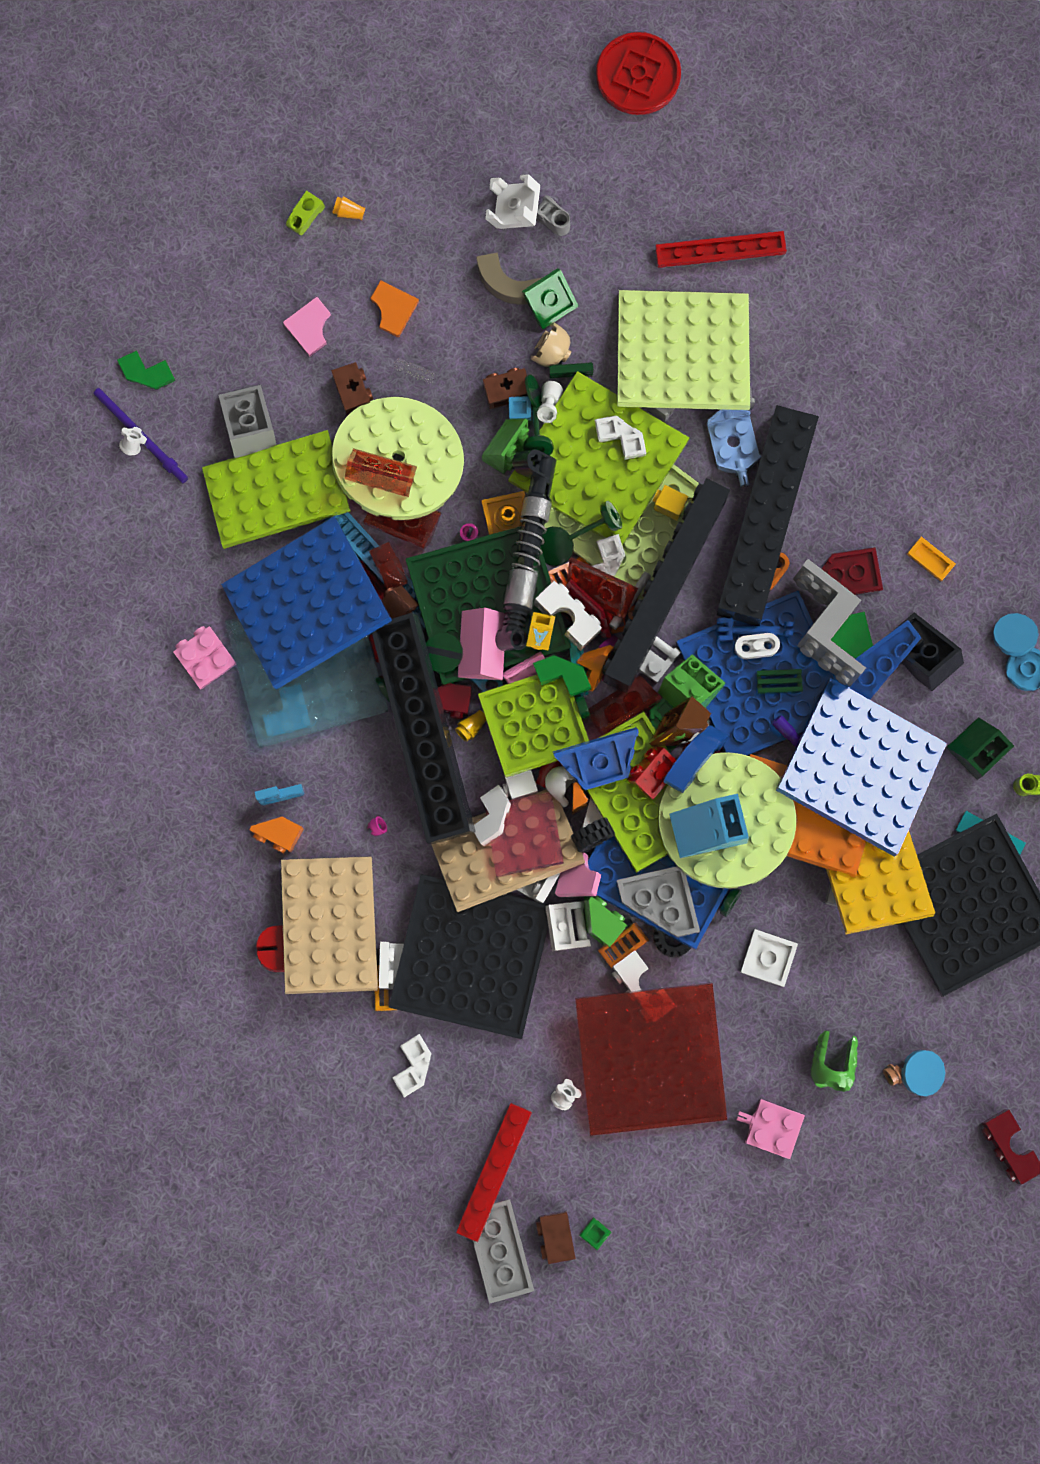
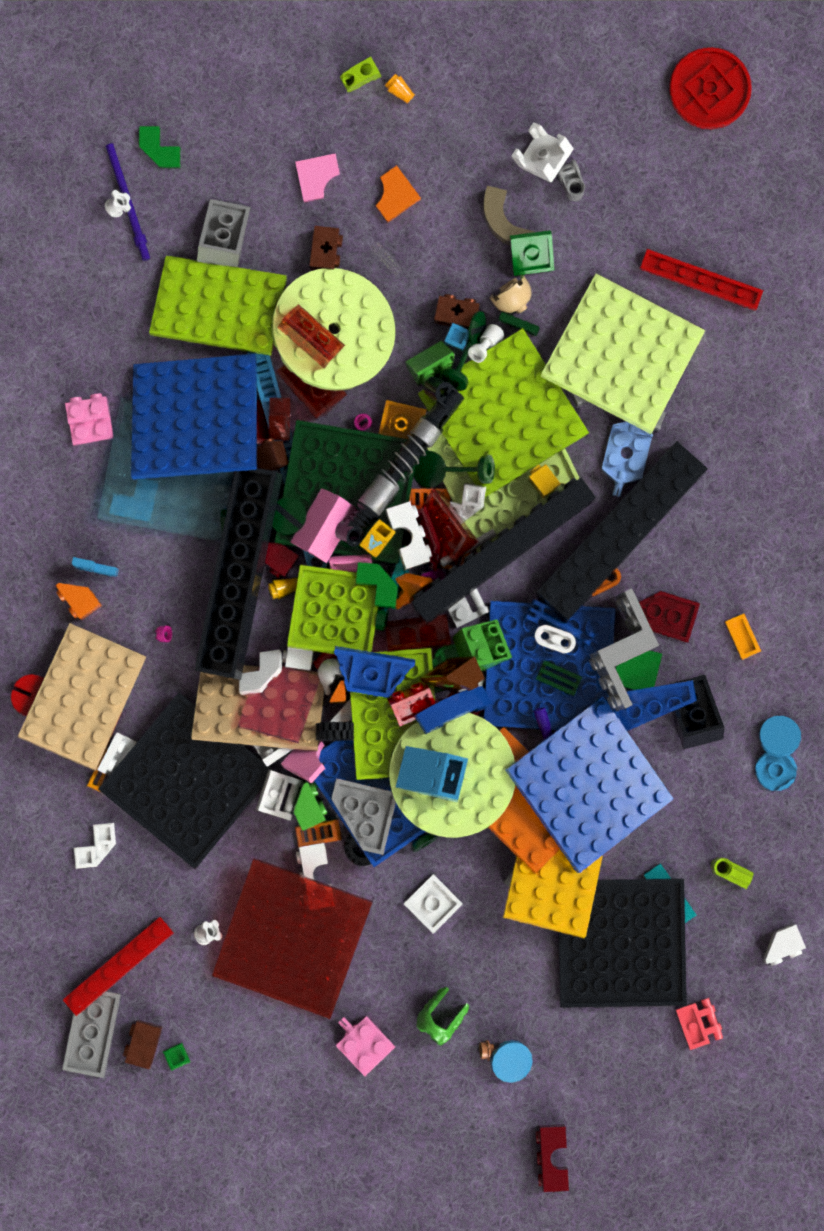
camera: 25 degrees right, 5 degrees up
(615, 428) = (529, 394): white tile -> none
(980, 747) = (699, 816): dark green slope -> none

